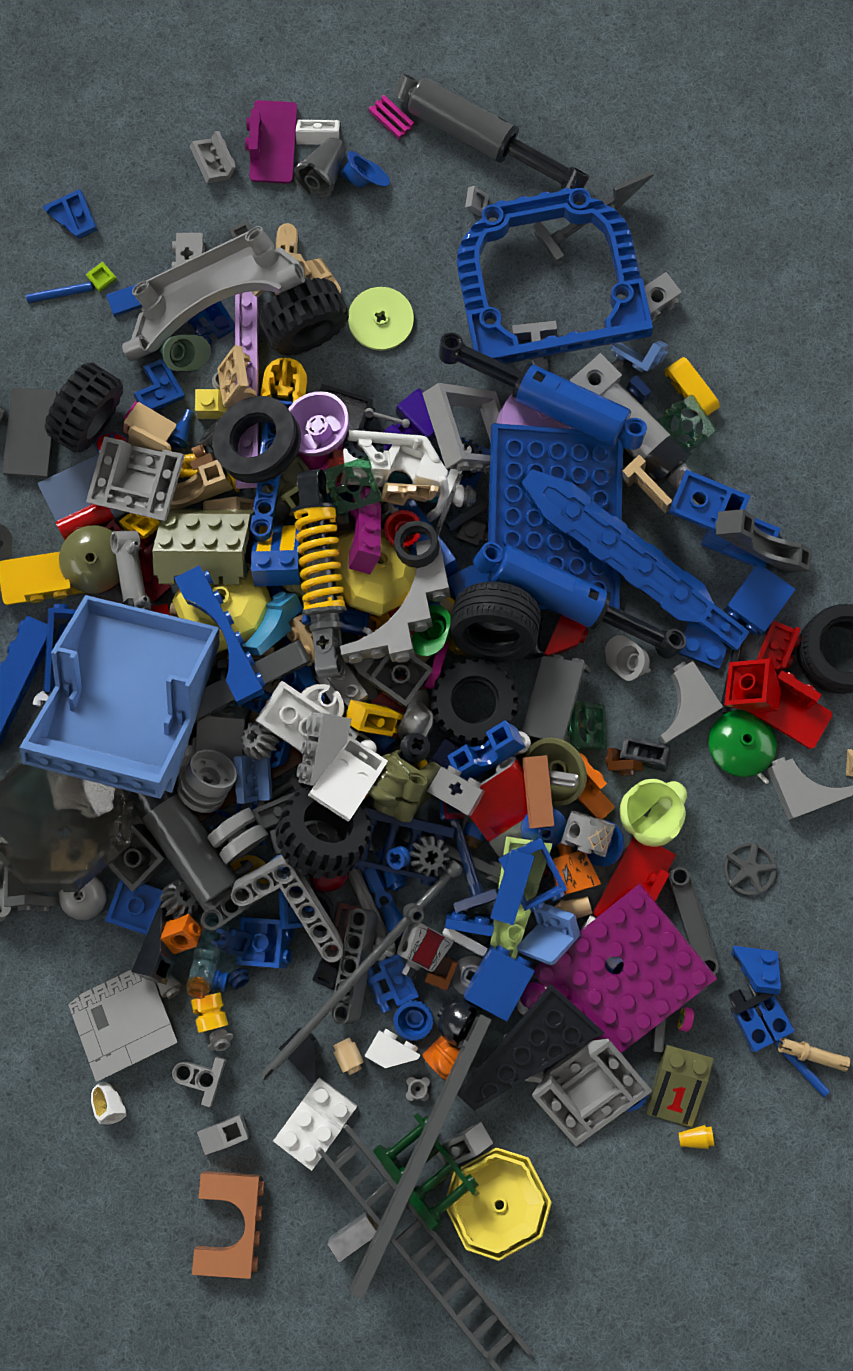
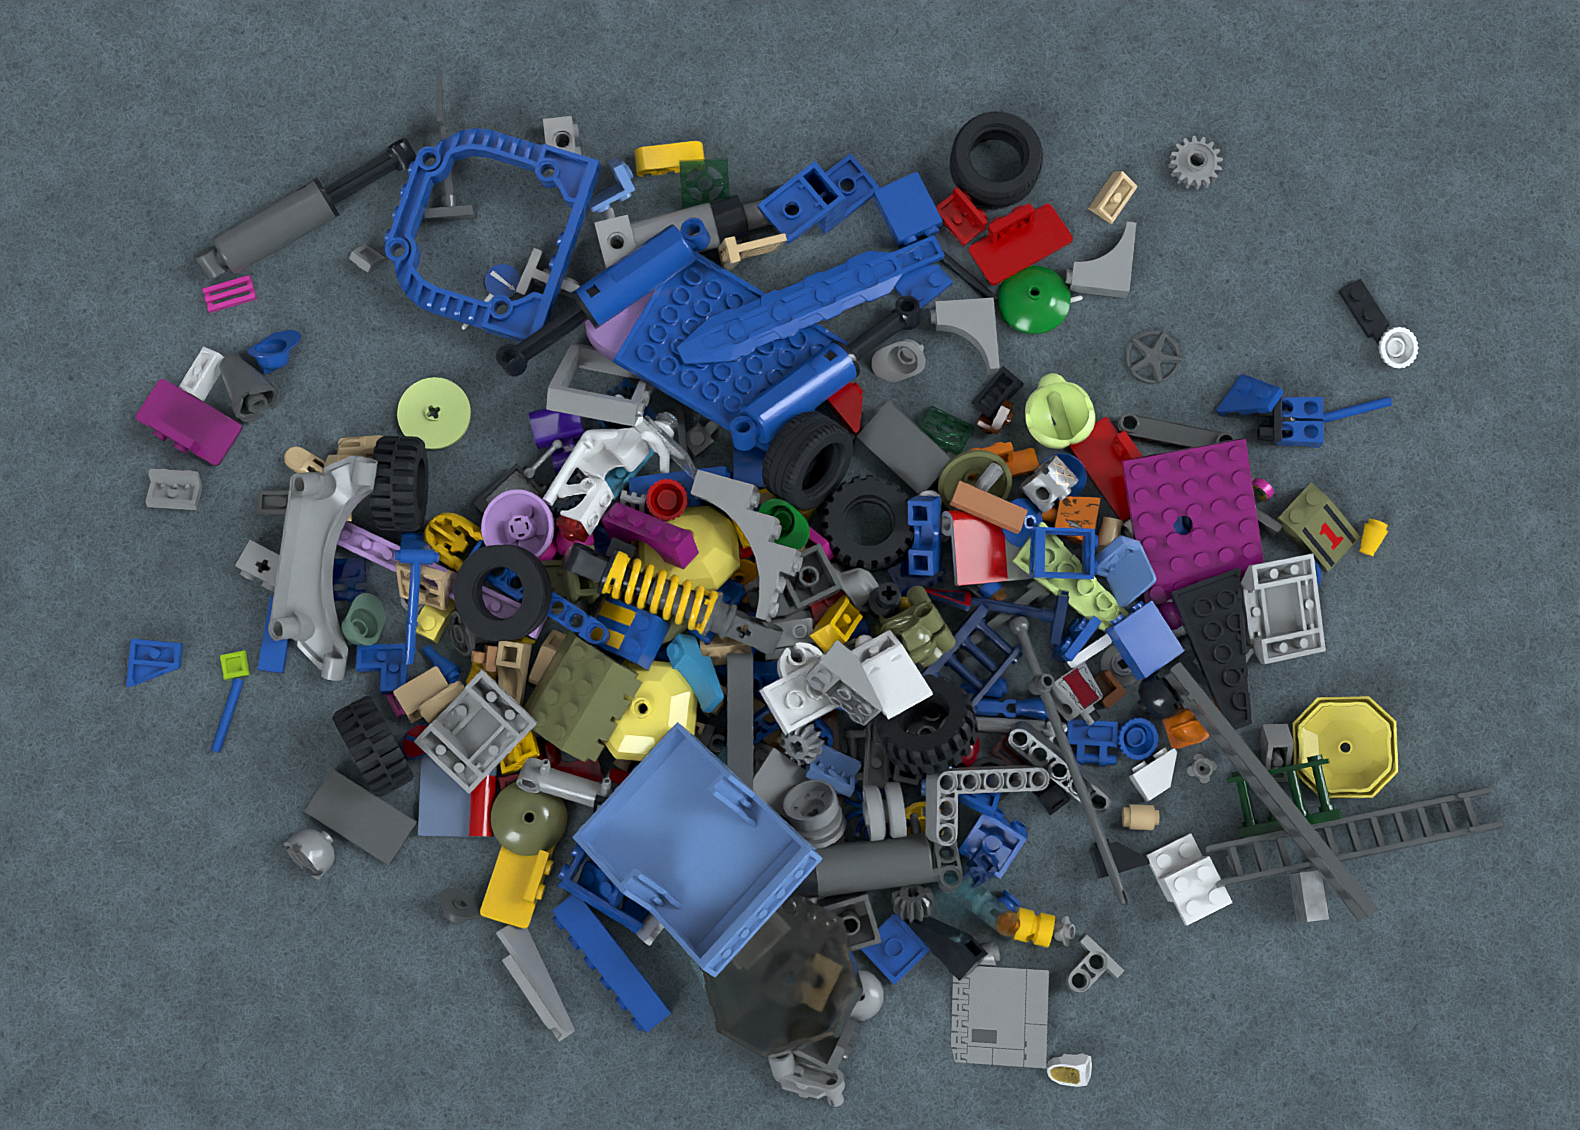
camera: 60 degrees left, 0 degrees up
(181, 934) = (947, 914): orange brick -> none
(223, 1134) = (1155, 971): light grey slope -> none
(238, 978) = (1014, 884): dark blue plate -> none
(238, 1259) = (1275, 1014): nougat arch -> none
(240, 678) = (631, 724): blue arch -> none
(252, 355) = (414, 552): none -> blue piece
(344, 506) = (588, 501): clear green piece -> none
(399, 493) = (632, 482): tan slope -> none
(404, 860) = (983, 662): blue bush -> none
(414, 528) = (681, 479): black tyre -> none
(436, 859) = (1001, 634): dark grey gear -> none
(442, 789) = (965, 580): light grey brick -> none
(512, 886) = (1066, 577): blue tile -> none
(516, 312) = (500, 281): none -> blue piece
(638, 389) = (647, 208): dark blue plate -> none
(739, 529) = (850, 185): dark grey arch -> none
(753, 686) = (988, 260): red slope -> none
(806, 1052) = (1345, 397): tan pin -> none

